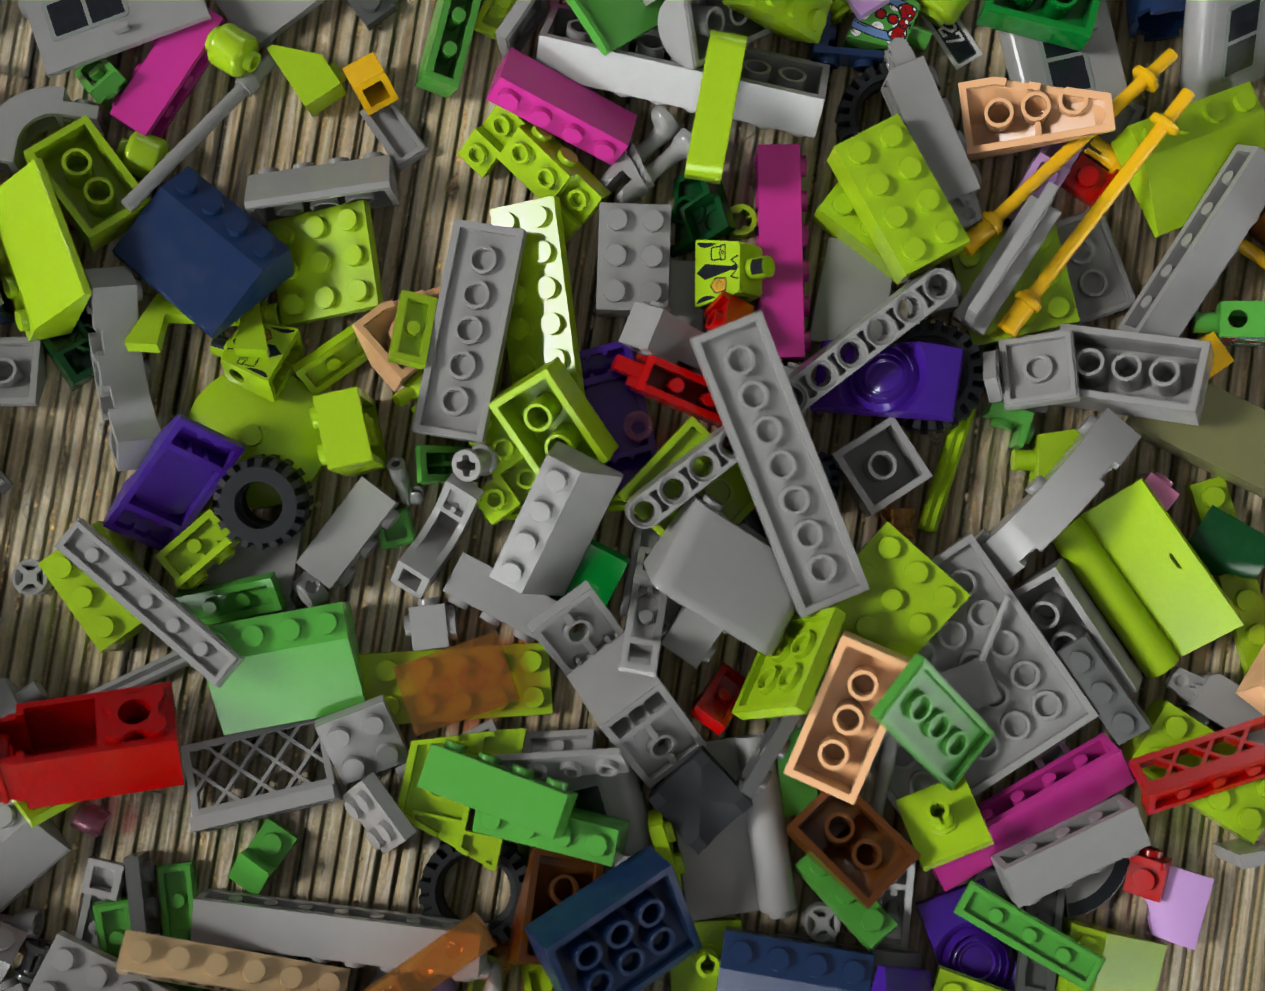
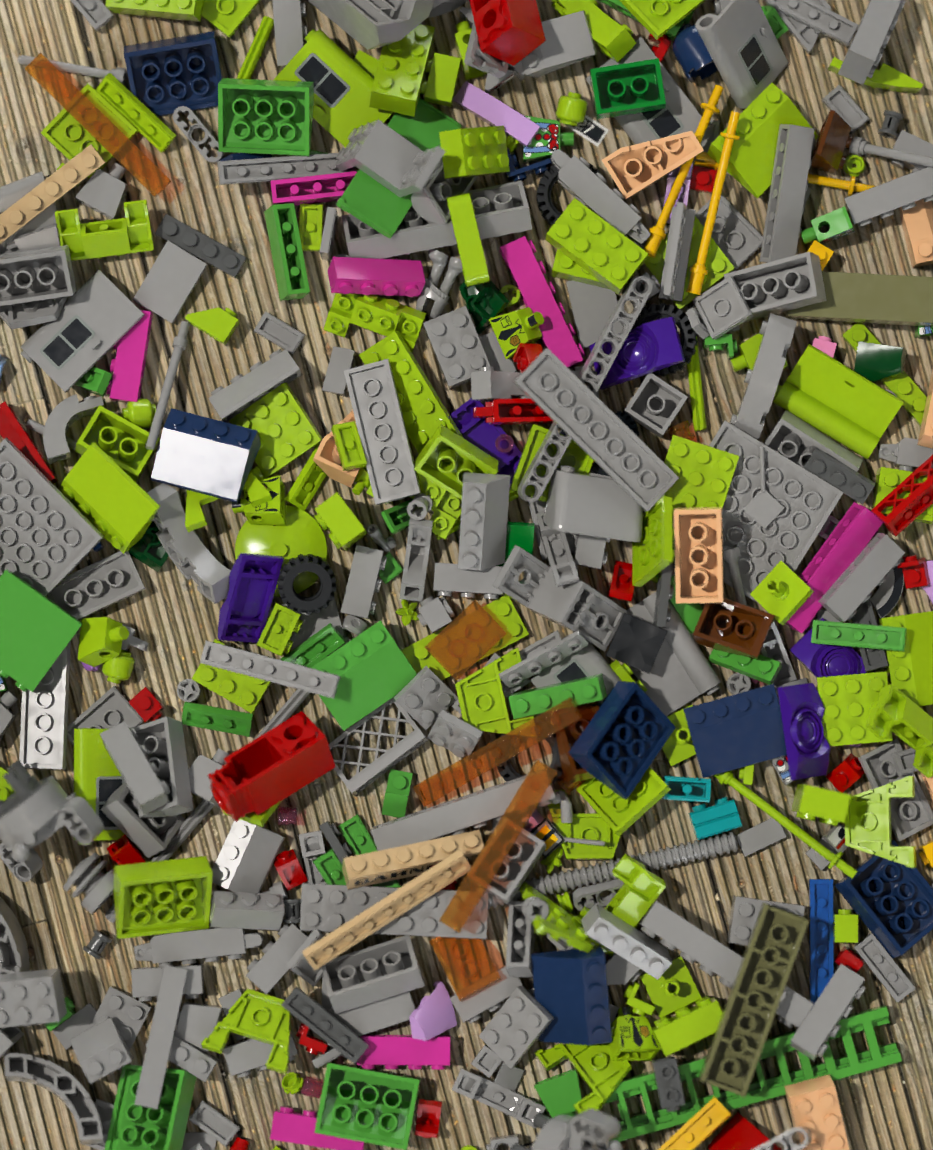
camera: 25 degrees left, 0 degrees up
(54, 635) = (217, 719): none -> bright green plate
(58, 898) = (289, 869): none -> red bracket
(232, 49) = (164, 327): lime head -> none
(370, 83) = (254, 311): yellow brick -> none
(394, 604) = (407, 612): none -> lime plant
(430, 868) = (497, 752): none -> clear orange tile
(462, 205) = (340, 360): none -> light grey slope
(498, 789) = (518, 685): bright green brick -> none
(932, 722) = (748, 537): bright green tile -> none

